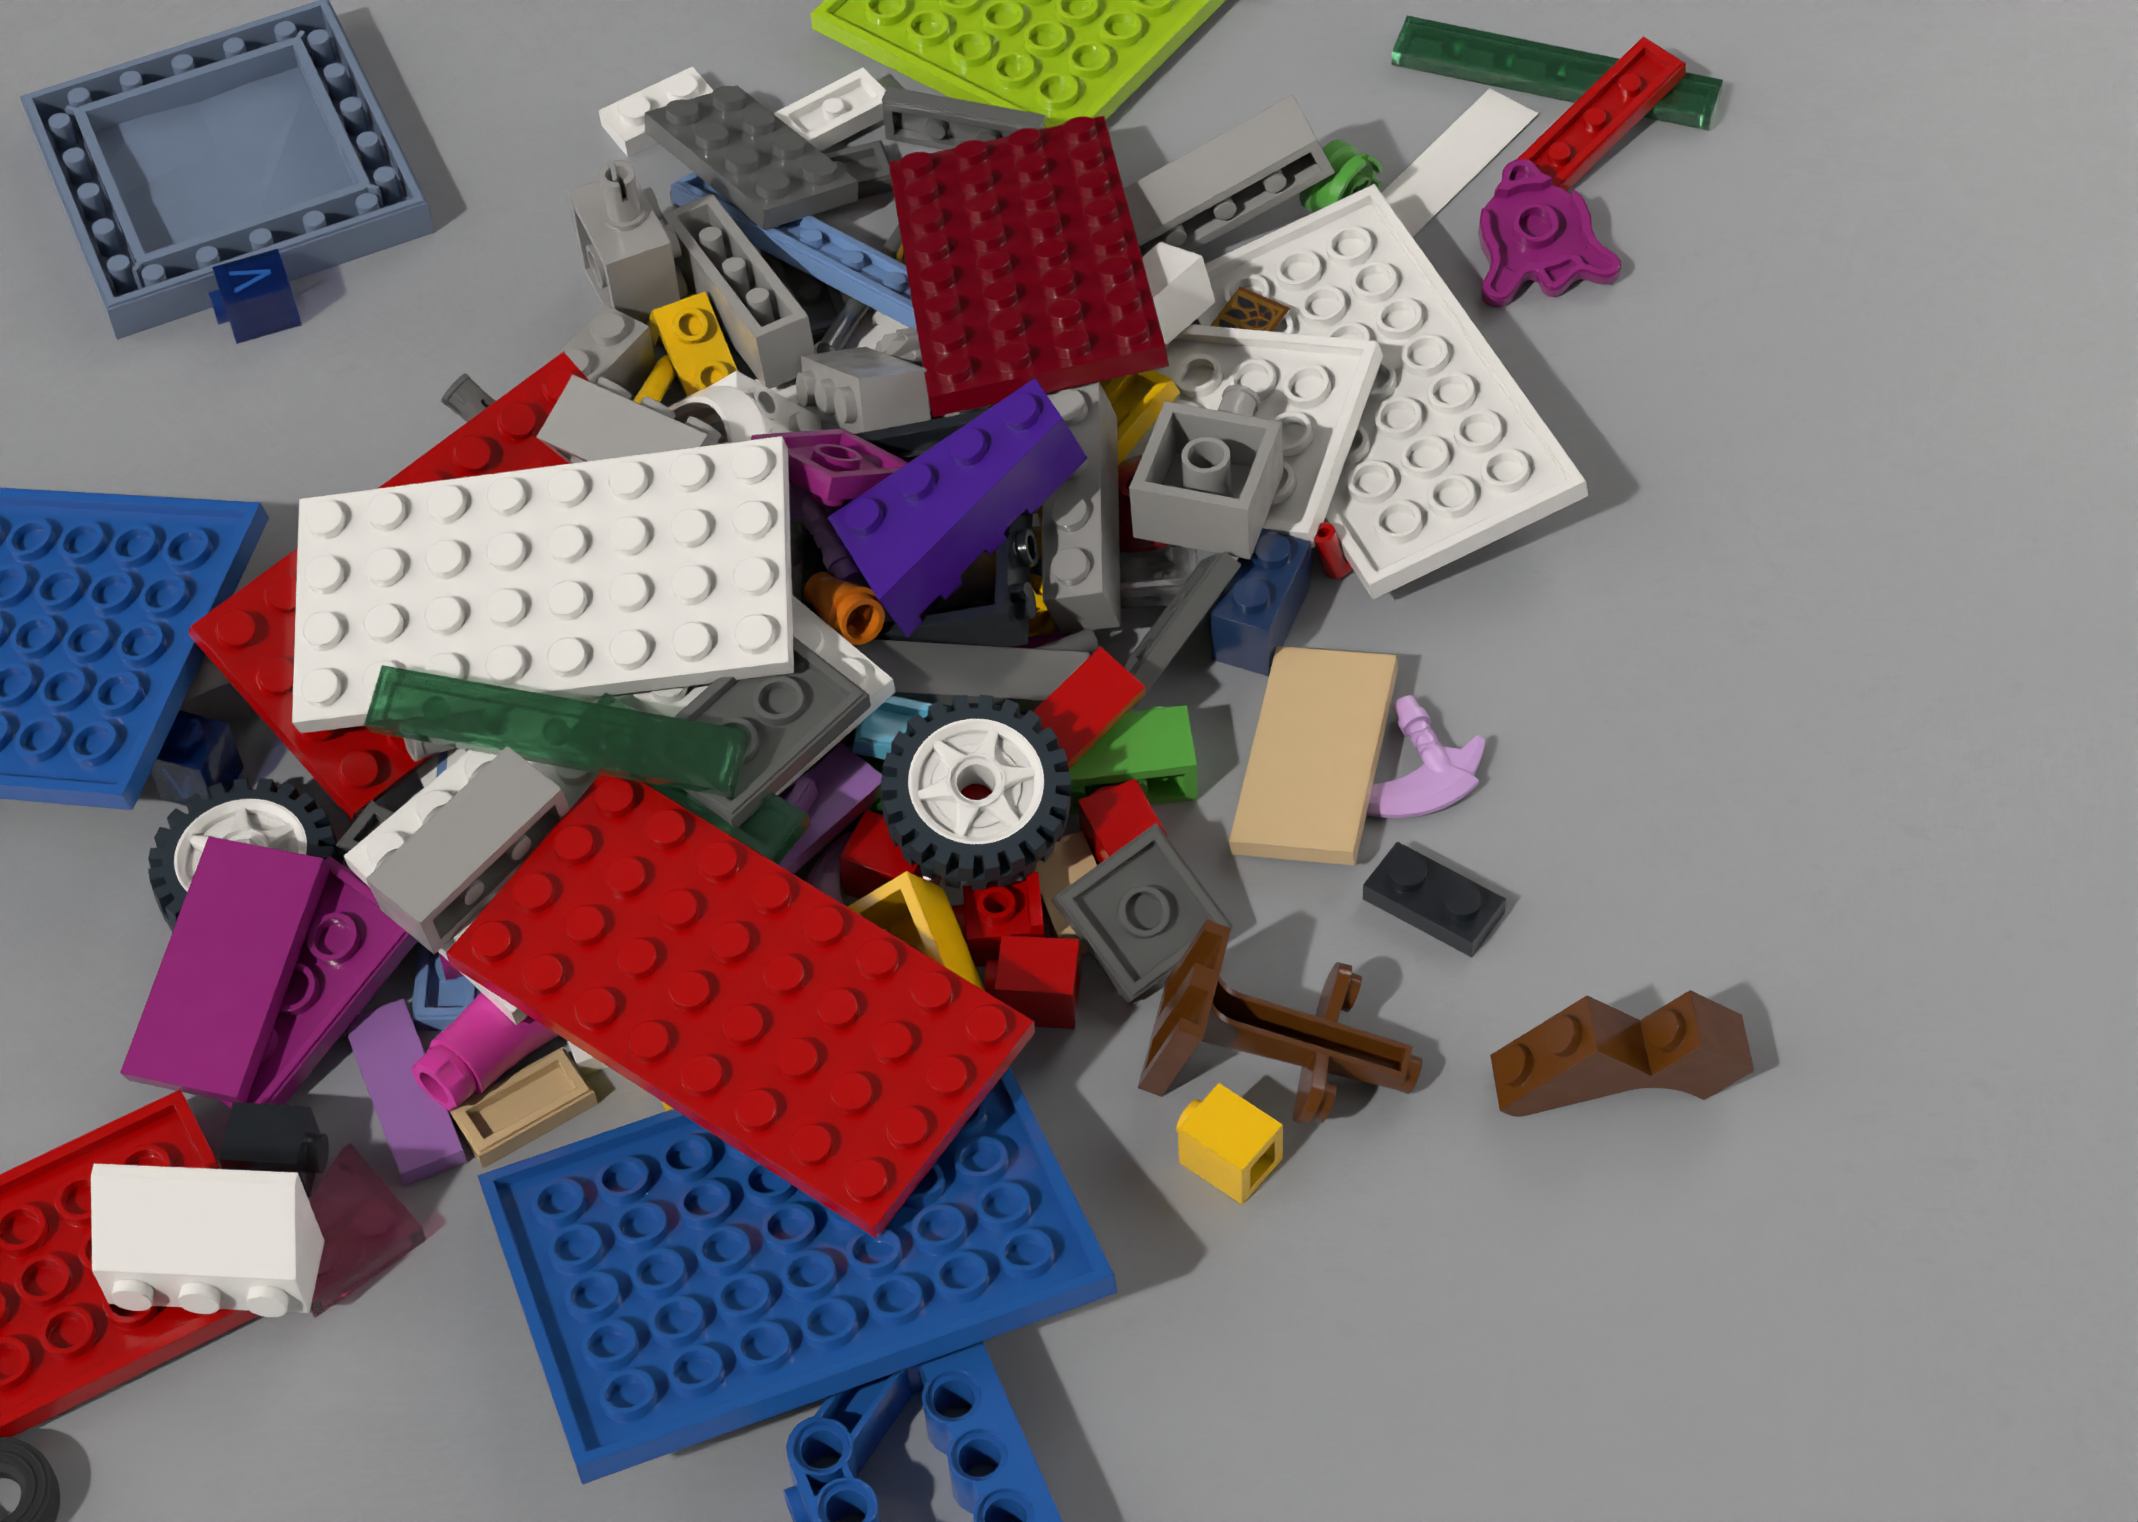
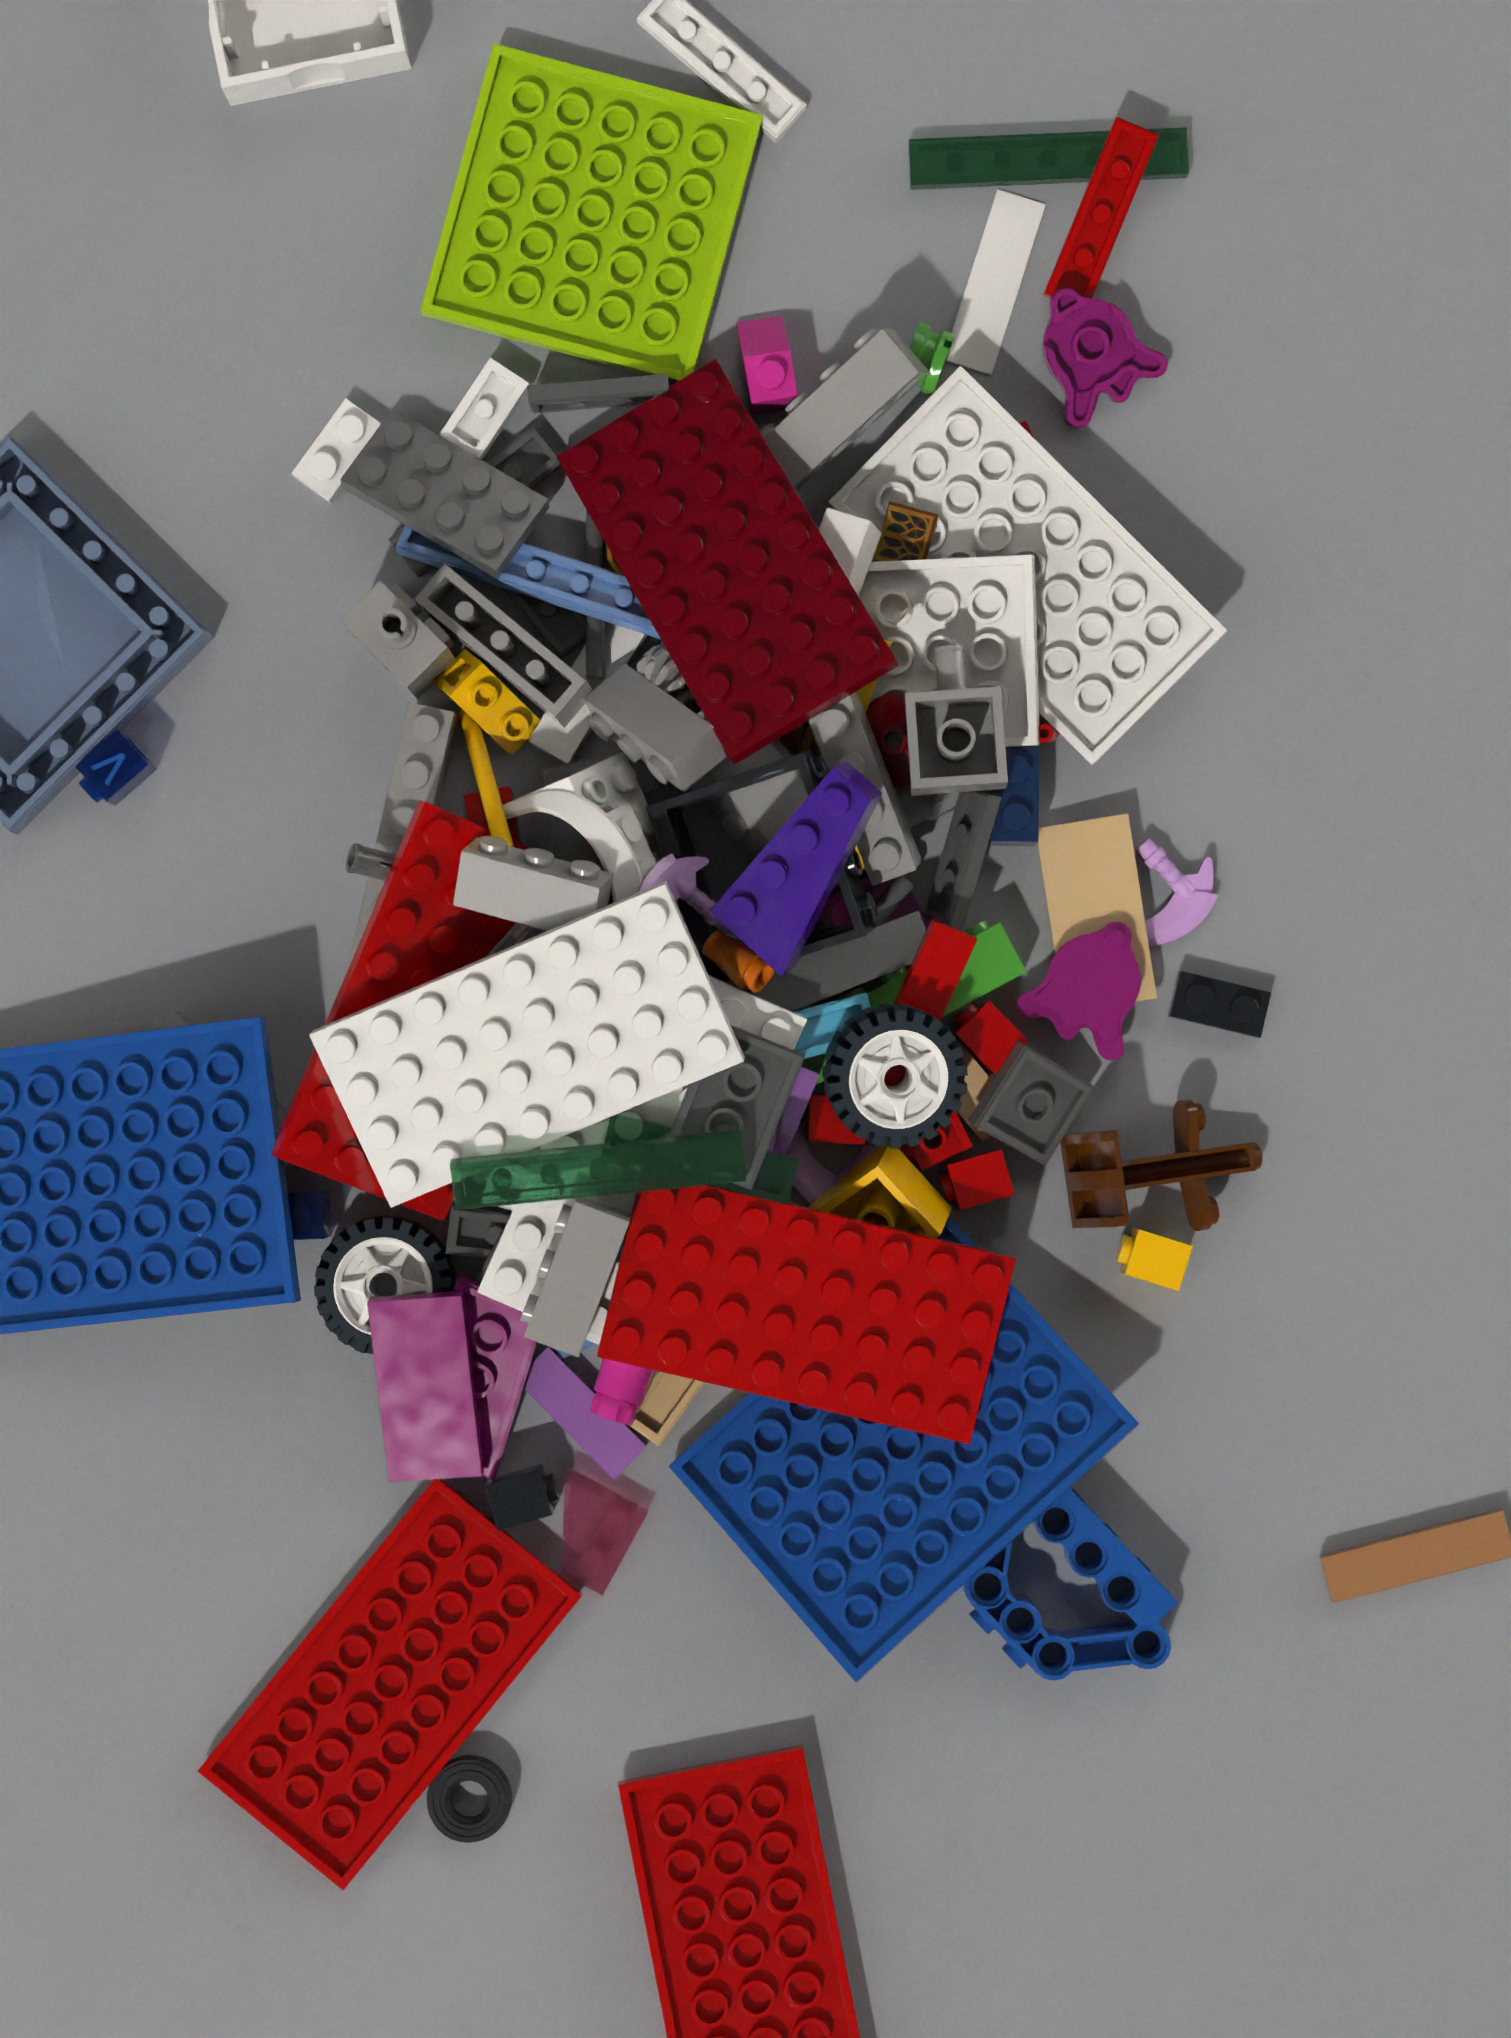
camera: 25 degrees left, 35 degrees up
(204, 1239) = (530, 1607): white slope -> none
(835, 464) = (691, 853): magenta plate -> none
(1154, 144) = (767, 364): none -> dark pink slope
(1269, 814) = (1089, 987): none -> magenta tile
(1604, 1052) = (1392, 1101): reddish brown arch -> none

